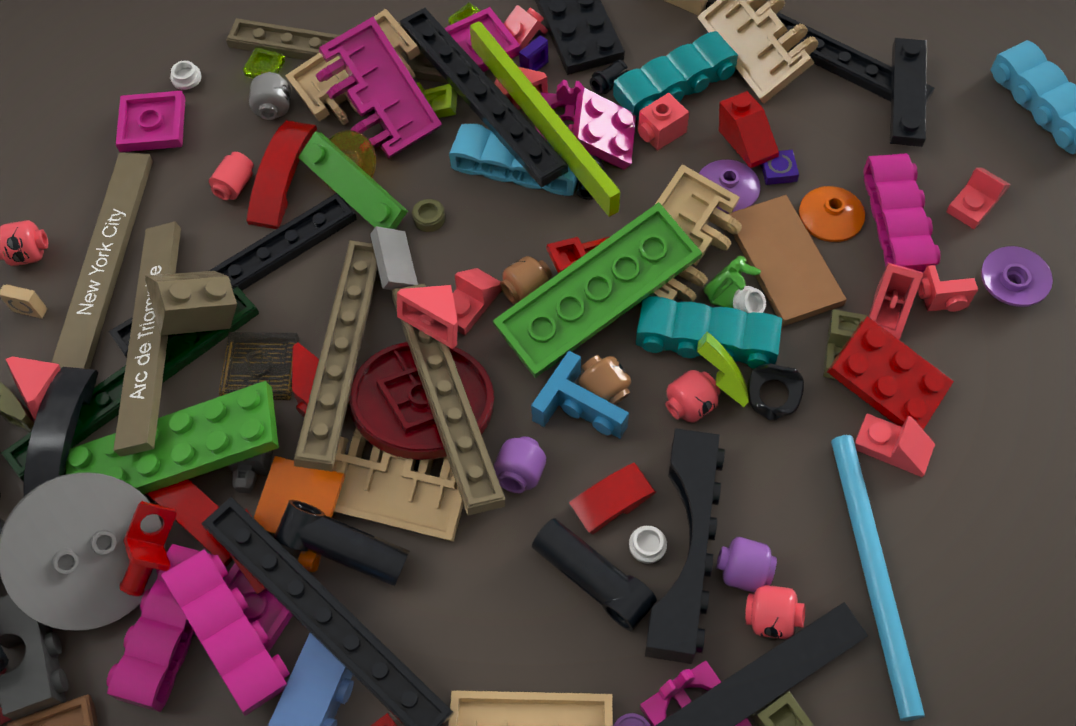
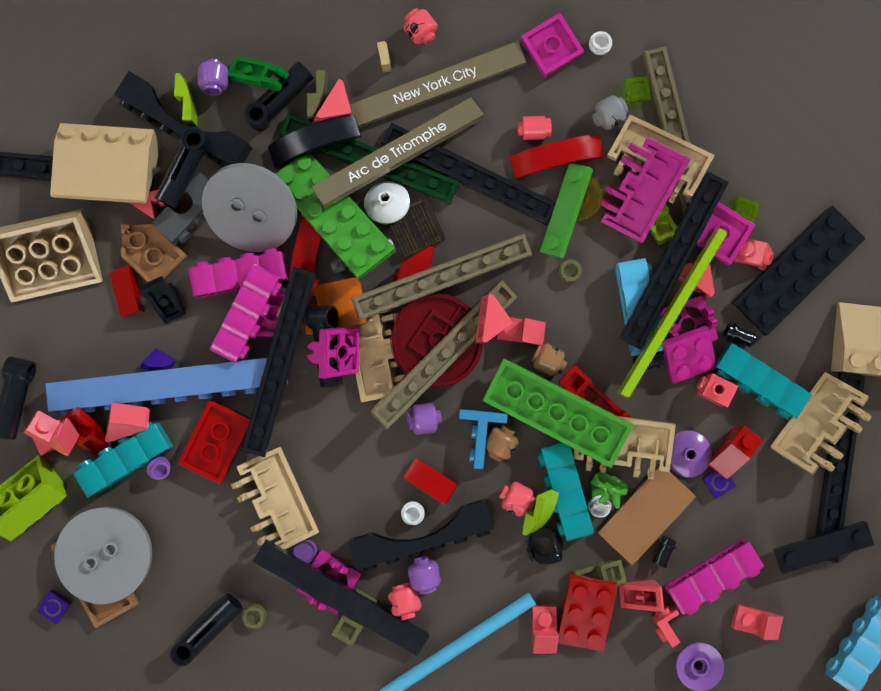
camera: 60 degrees right, 25 degrees up
(146, 549) = (268, 241): red bracket -> none
(191, 301) = (430, 164): dark tan slope -> none
(204, 379) = (387, 211): none -> white dish
(347, 534) = (350, 351): none -> dark pink piece
(393, 258) = (524, 268): light grey tile -> none
(535, 54) = (731, 275): dark purple tile -> none
(621, 595) = (379, 491): black piece -> none
(831, 223) = (688, 525): orange dish -> none
(842, 256) = (664, 551): none -> black pin

